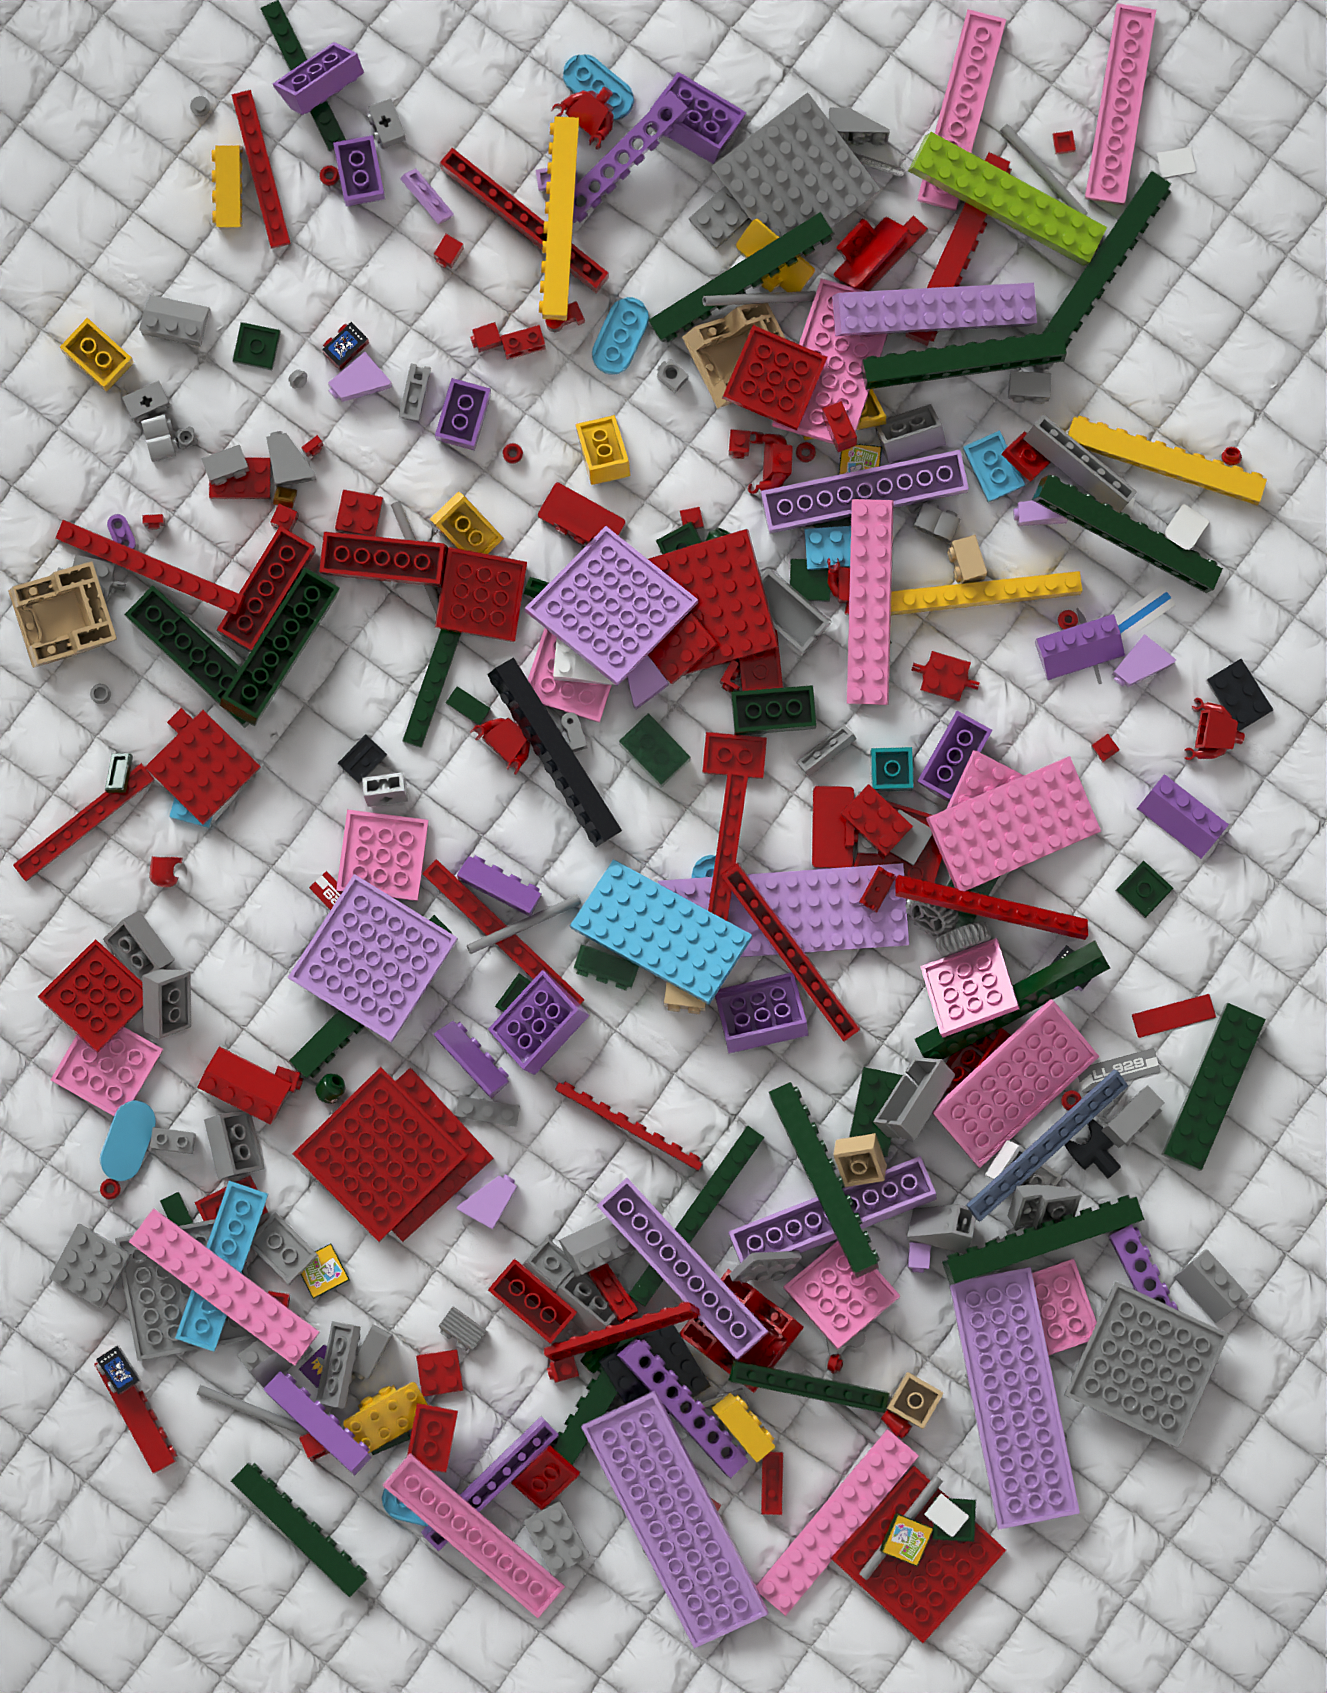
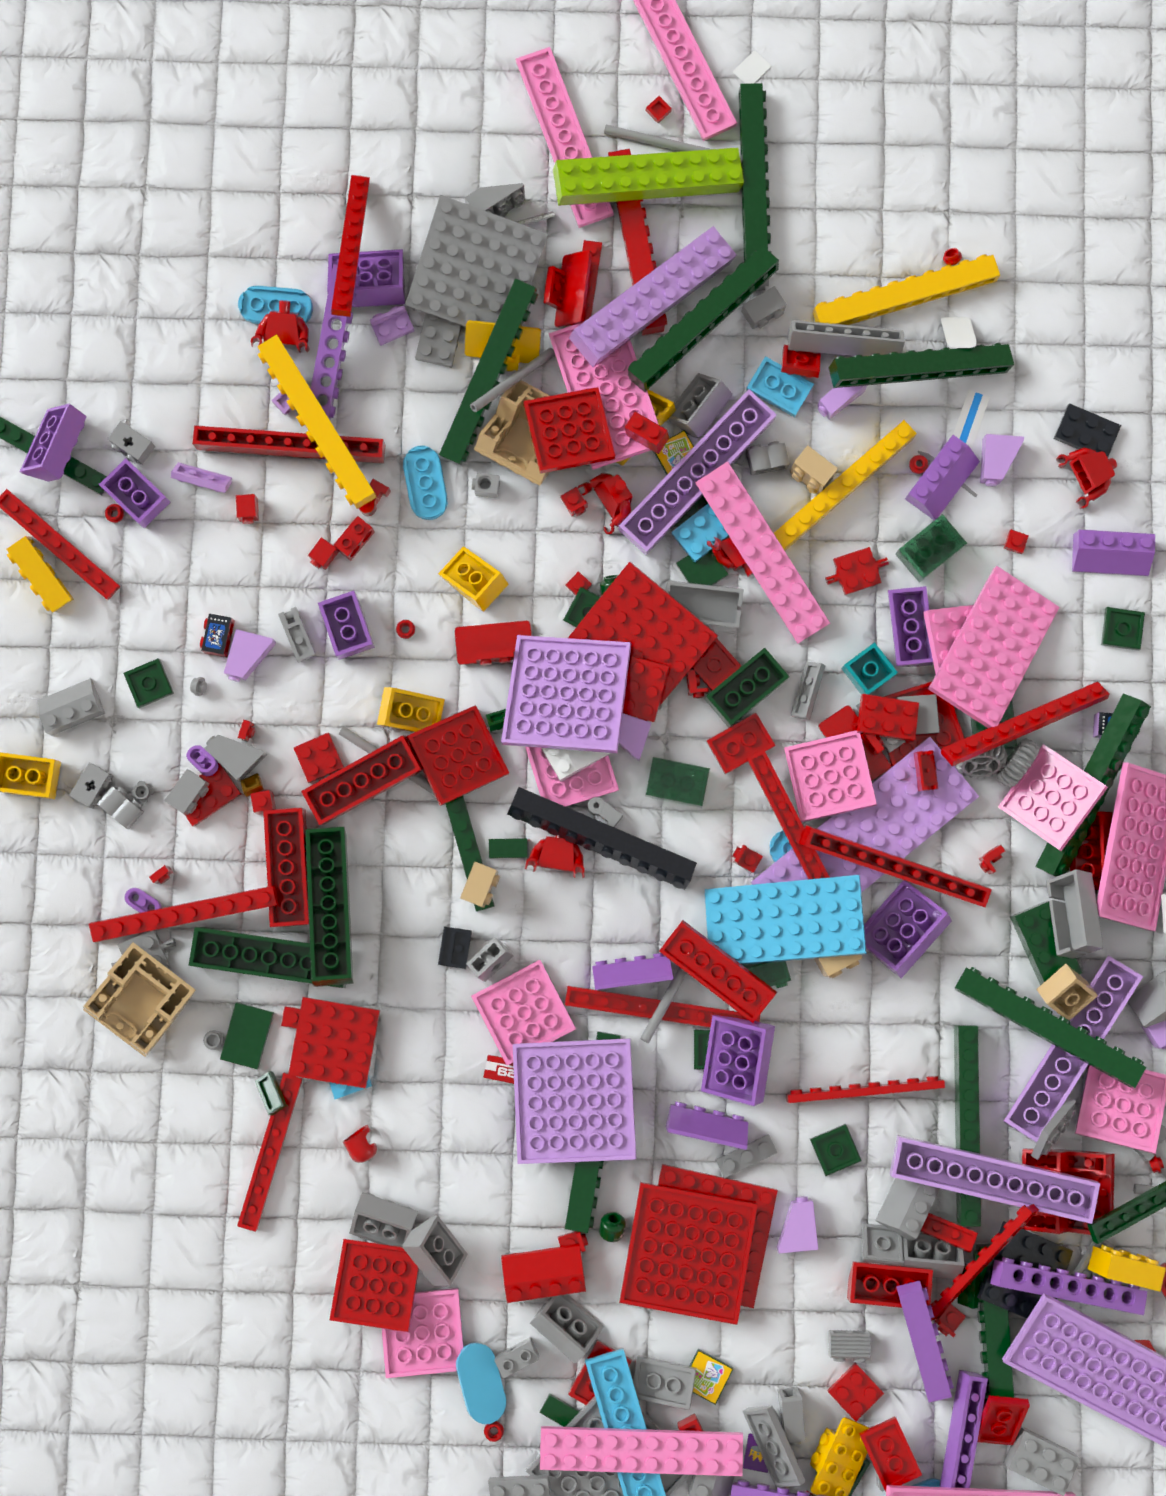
camera: 30 degrees left, 0 degrees up
(131, 710) = (246, 1035): none -> dark green tile
(257, 450) = (204, 763): none -> medium lavender plate
(421, 718) = (480, 884): none -> tan brick
(527, 1366) = (924, 1342): none -> medium lavender brick
(568, 1159) = (835, 1149): none -> dark green tile
(573, 933) = (718, 971): none -> red plate
(669, 858) = (746, 858): none -> red bracket
(688, 174) = (391, 325): none -> lavender bracket
(698, 82) = (350, 246): none -> red plate
(791, 837) = (830, 776): none -> bright pink plate
(808, 446) = (629, 468): red plate -> none
(884, 1004) = (992, 855): none -> red bracket
(1023, 700) = (931, 548): none -> clear green brick

